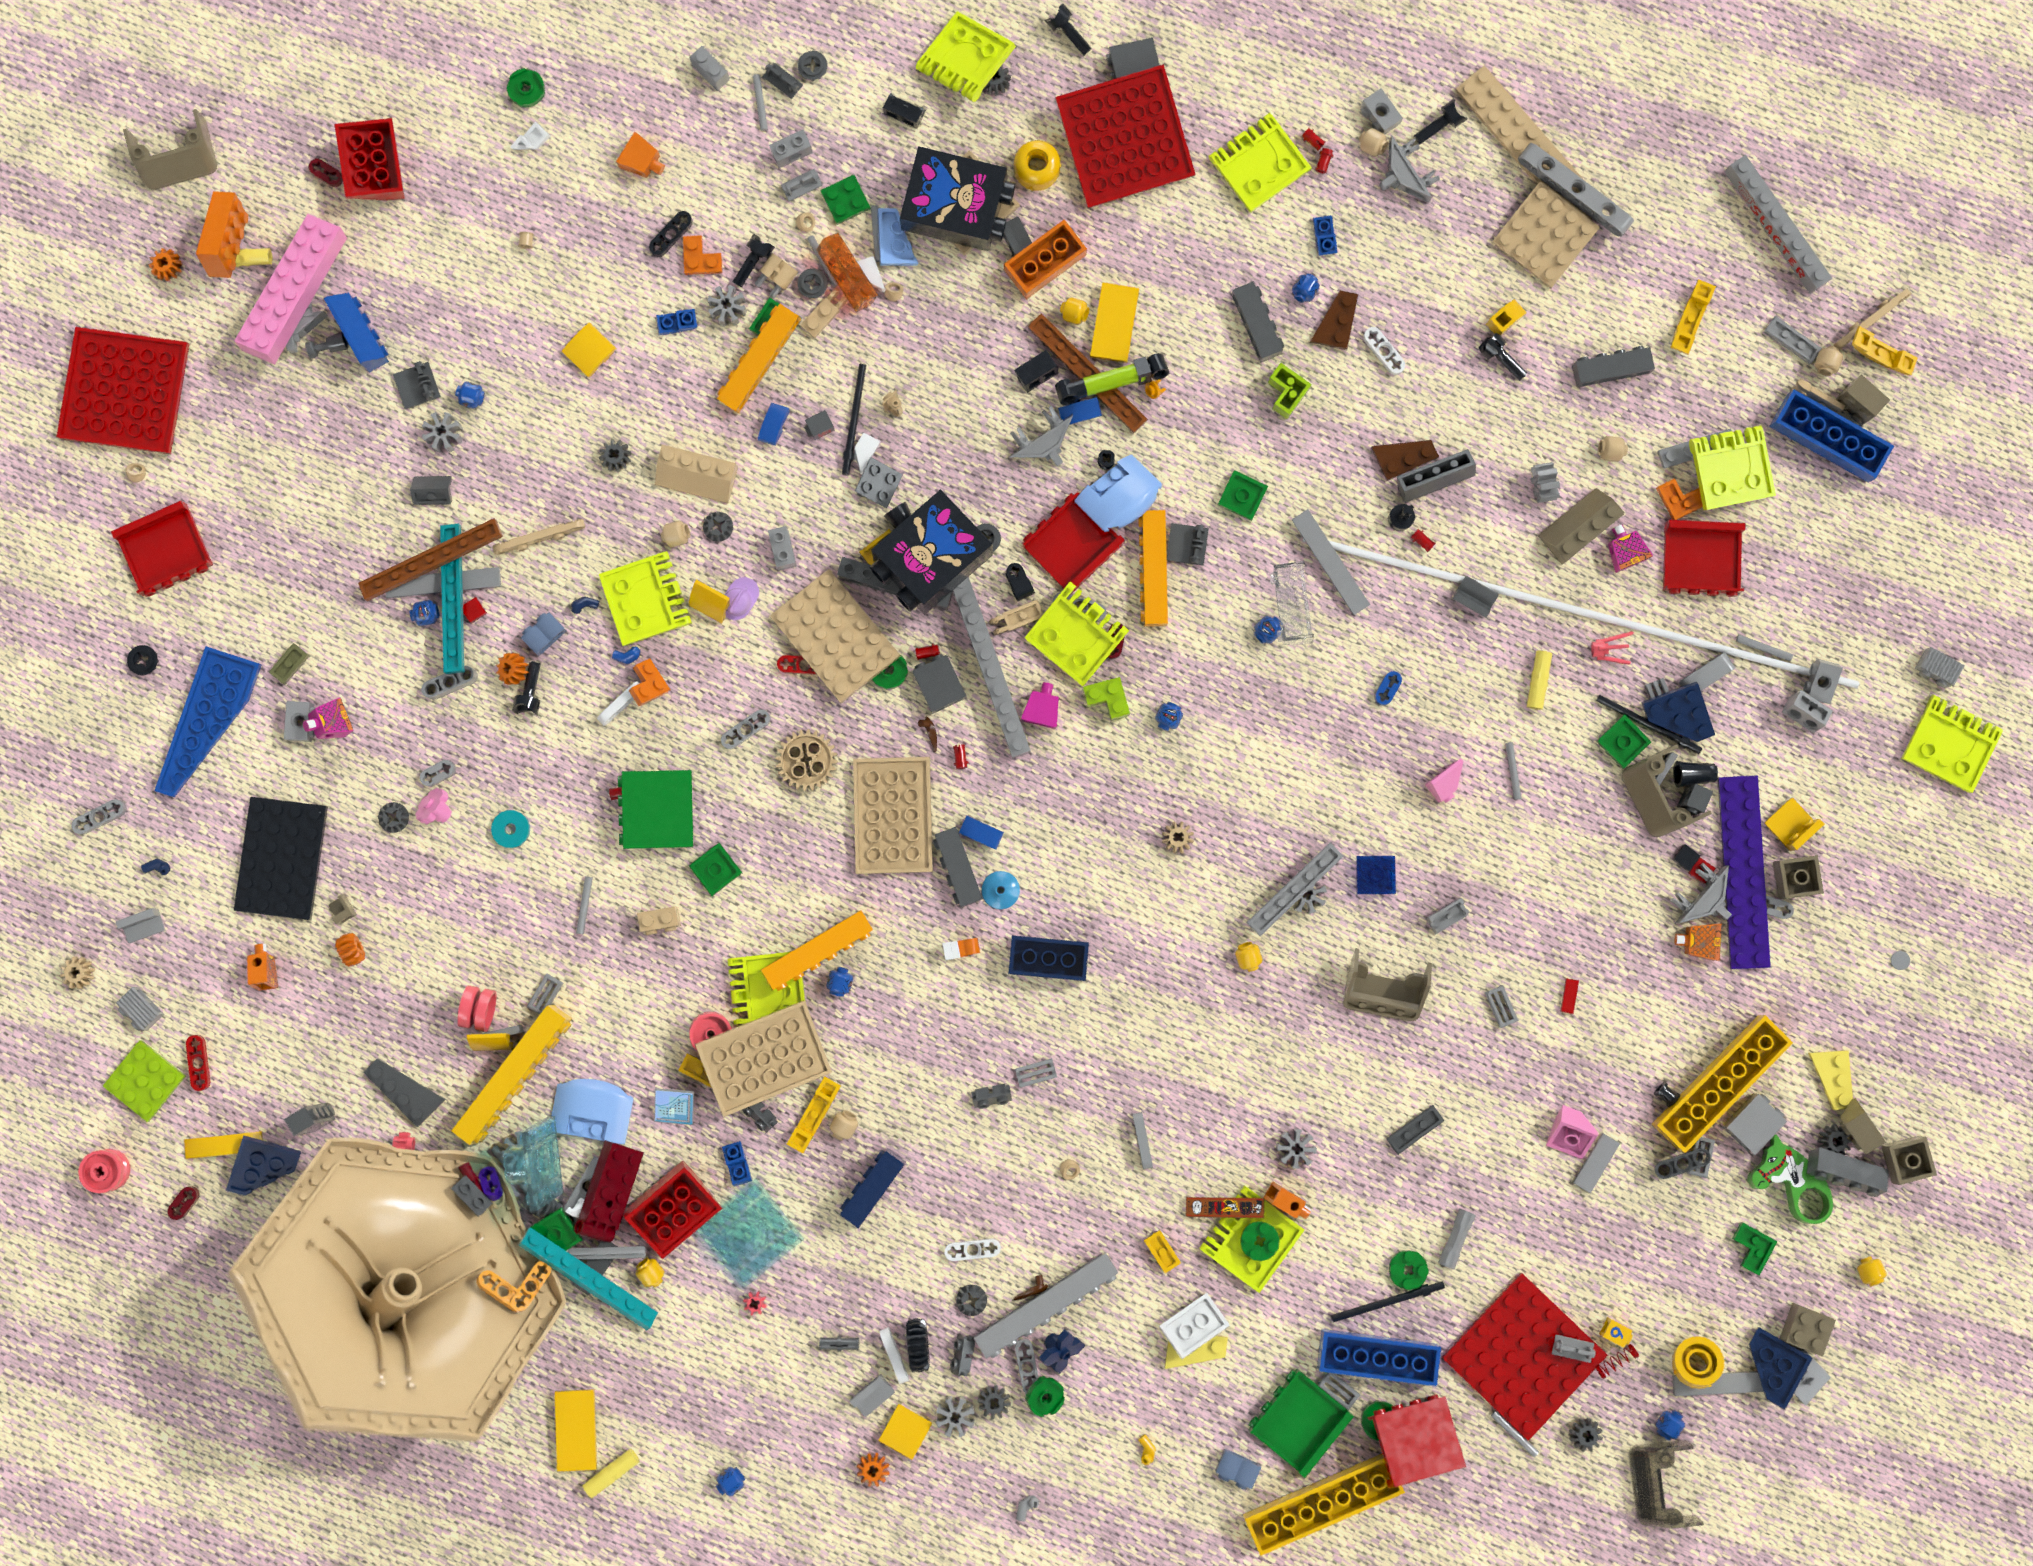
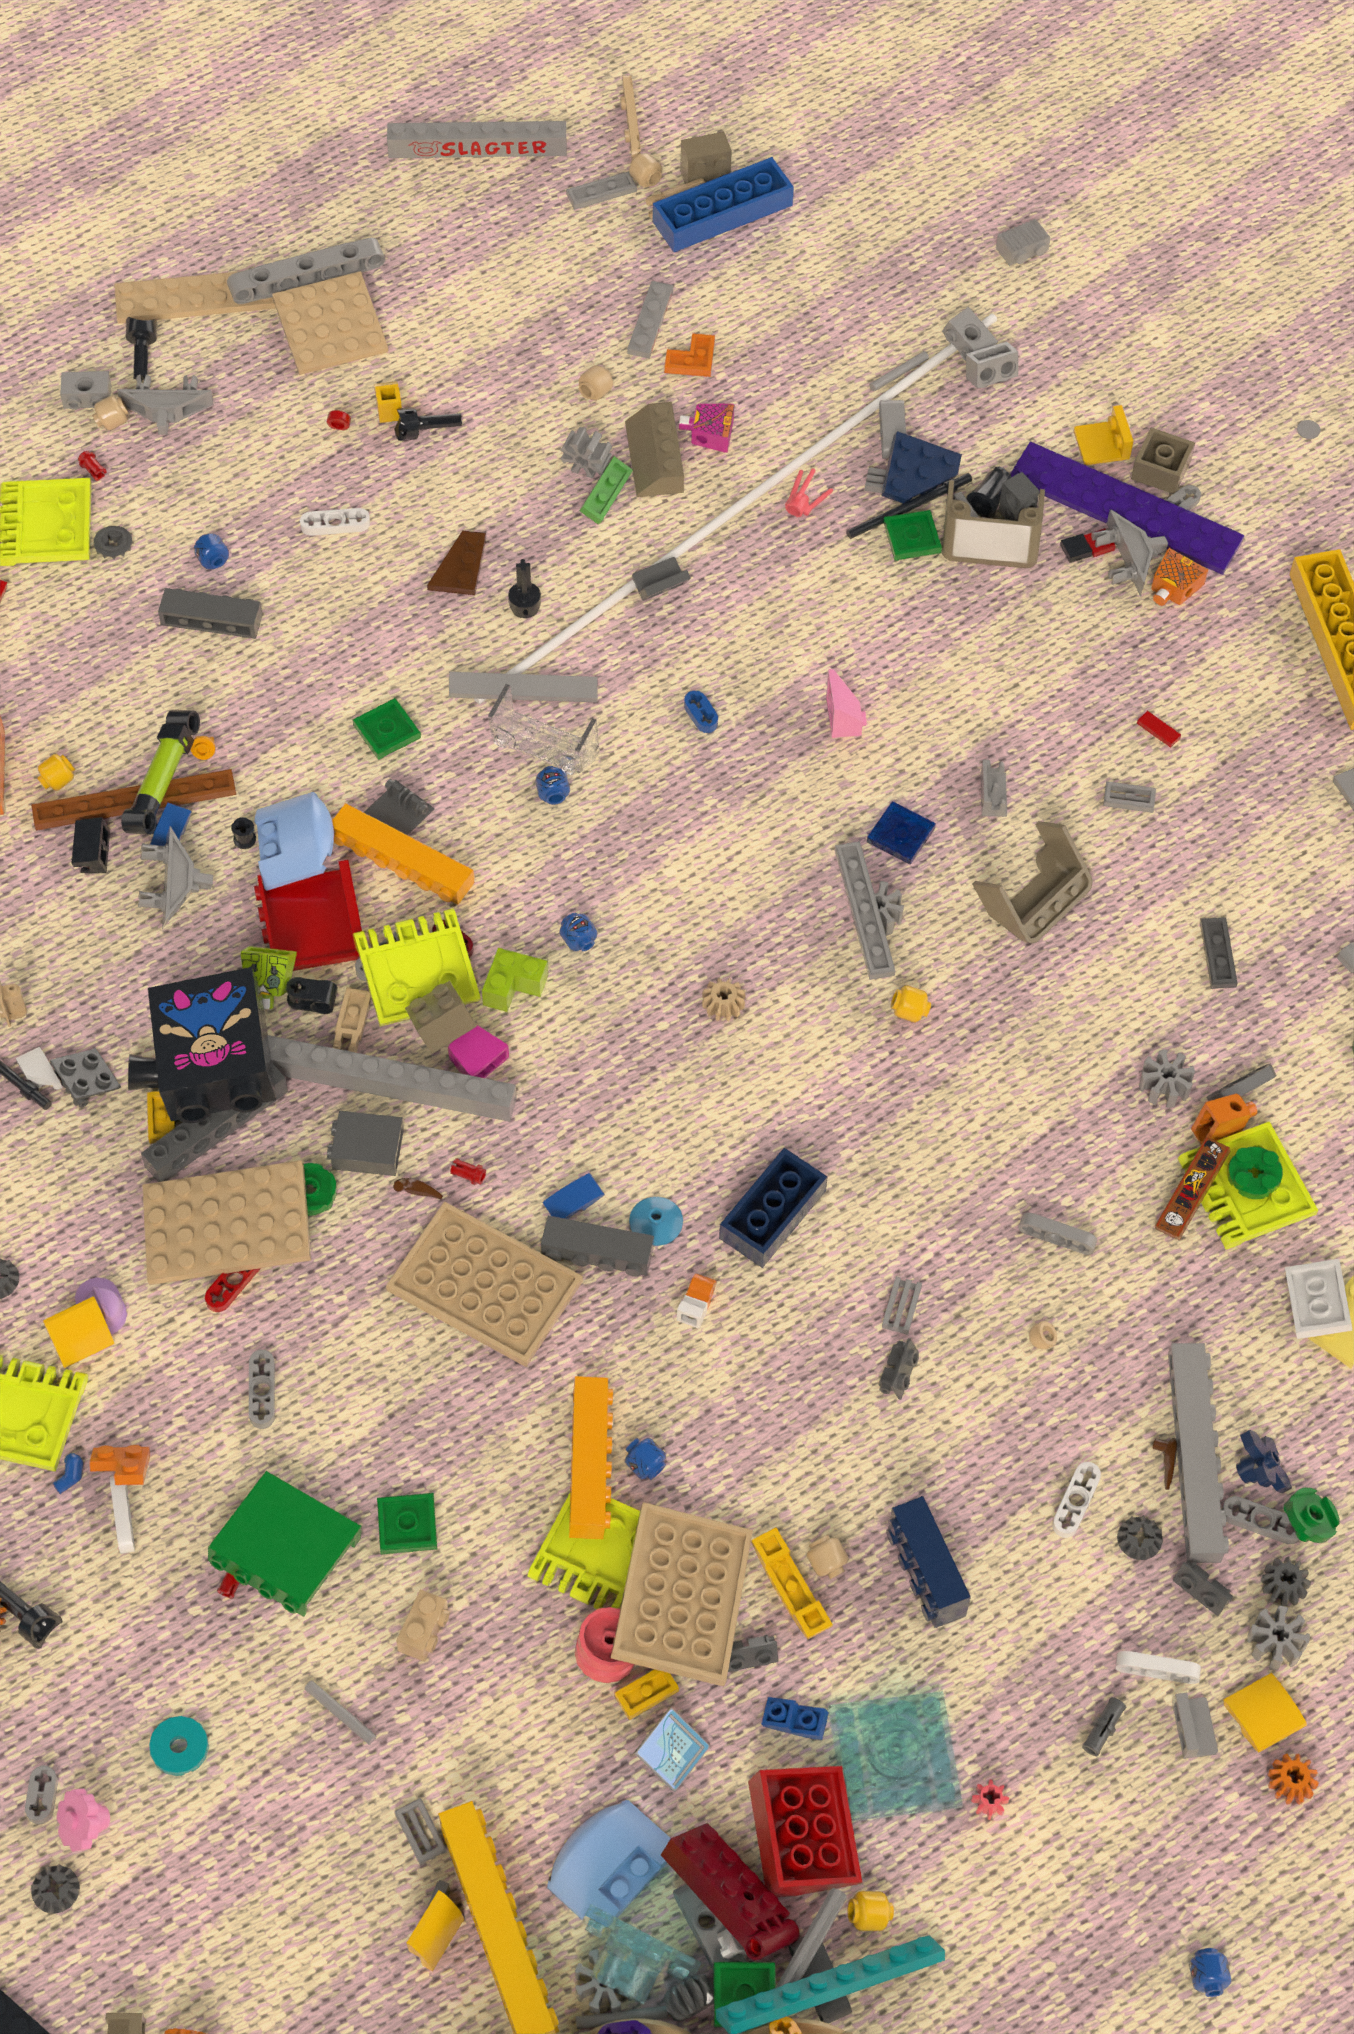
camera: 60 degrees left, 25 degrees down
(477, 1008) = (380, 1920): coral wheel -> none
(782, 548) = (79, 1218): light grey brick -> none
(823, 756) = (339, 1359): tan gear -> none
(917, 1345) = (1161, 1623): black gear -> none
(928, 651) = (319, 1136): red pin -> none
(1012, 545) = (272, 970): none -> lime torso
(1047, 674) = (440, 1016): none -> dark tan brick
(1114, 322) = (100, 743): yellow tile -> none
(1162, 1251) = (1205, 1287): yellow plate -> none
(1281, 216) = (115, 534): none -> dark grey gear
(1292, 388) = (306, 617): lime brick -> none
(1312, 138) = (61, 462): red pin -> none
(1320, 1198) = (1246, 1083): none -> beam
(1325, 235) = (172, 509): blue slope -> none
(1338, 322) = (271, 546): reddish brown wing -> none
(1423, 540) = (563, 594): red pin -> none
(1436, 475) = (504, 542): dark grey brick -> none
(1467, 297) = (338, 420): none -> red tile
(1513, 770) = (874, 648): light grey bar -> none
(1526, 513) = (606, 490): none -> bright green plate
(1539, 680) = (792, 572): light yellow axle -> none
(1571, 1133) = (1316, 803): bright pink slope -> none
(1613, 367) = (511, 339): dark grey brick -> none
(1667, 1094) = (1326, 696): black bush -> none
(1692, 316) = (510, 252): yellow slope -> none
(1703, 557) = (765, 370): red panel -> none
(1733, 469) = (693, 295): neon yellow hinge -> none
(1882, 353) = (672, 129): yellow slope -> none
(1949, 746) = (1110, 276): neon yellow hinge -> none

